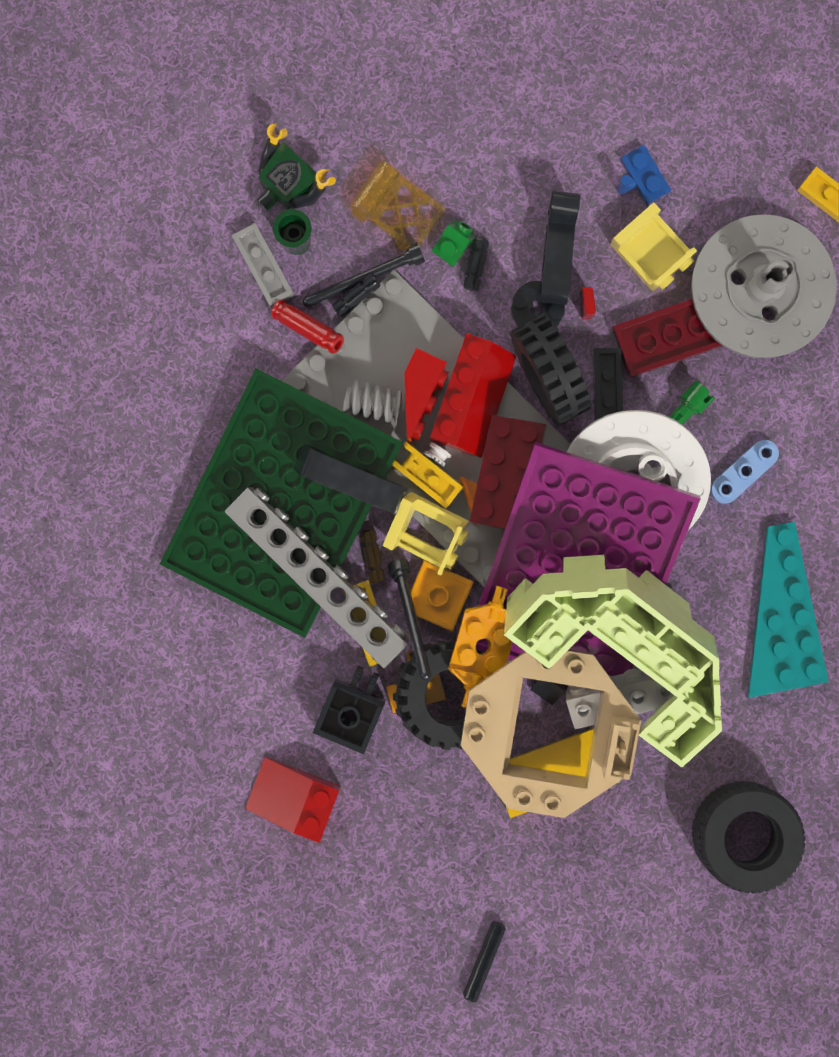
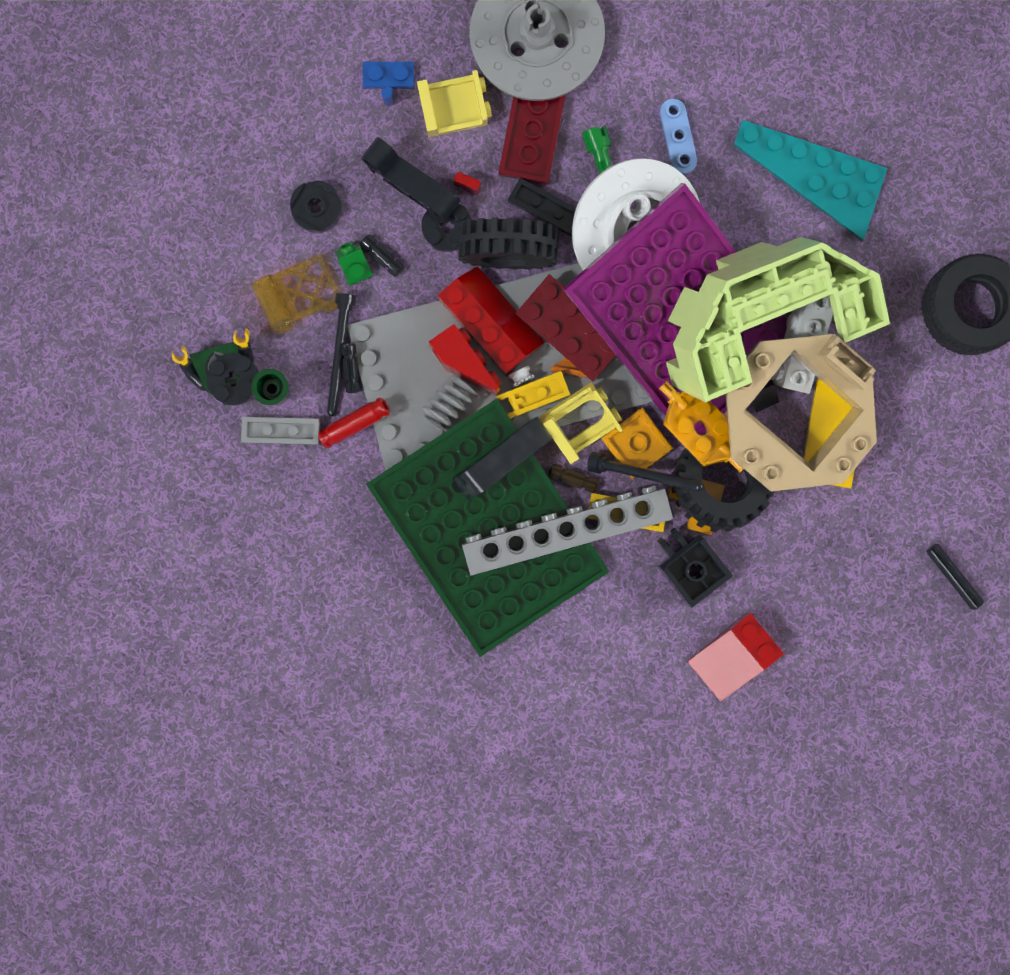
camera: 60 degrees left, 0 degrees up
(281, 177) = (221, 369): none -> black plate
(475, 167) = (315, 192): none -> black plate

